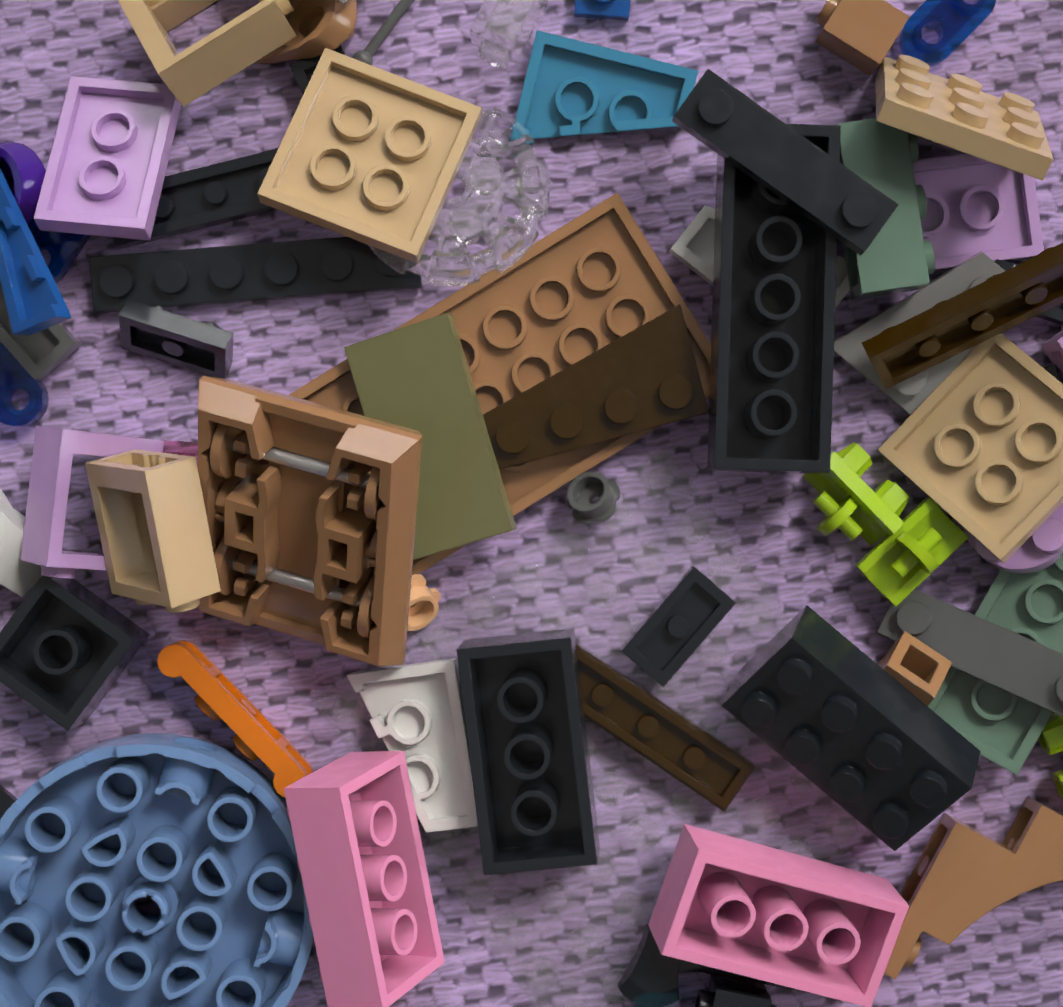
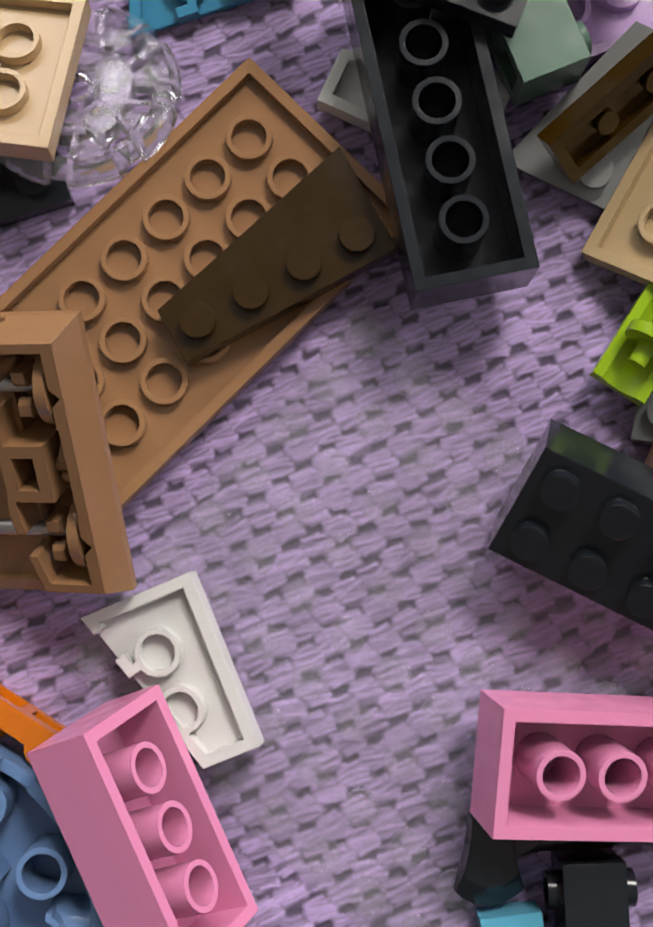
camera: 15 degrees left, 5 degrees down
(423, 603) = (148, 526): light nougat plate -> none
(424, 384) = (140, 366): olive tile -> none
(528, 752) = (292, 653): black brick -> none
(587, 487) = (298, 368): dark grey plate -> none
(660, 732) = (416, 595): dark brown tile -> none
(678, 626) = (421, 479): black plate -> none
(852, 503) = (570, 308): lime hips -> none

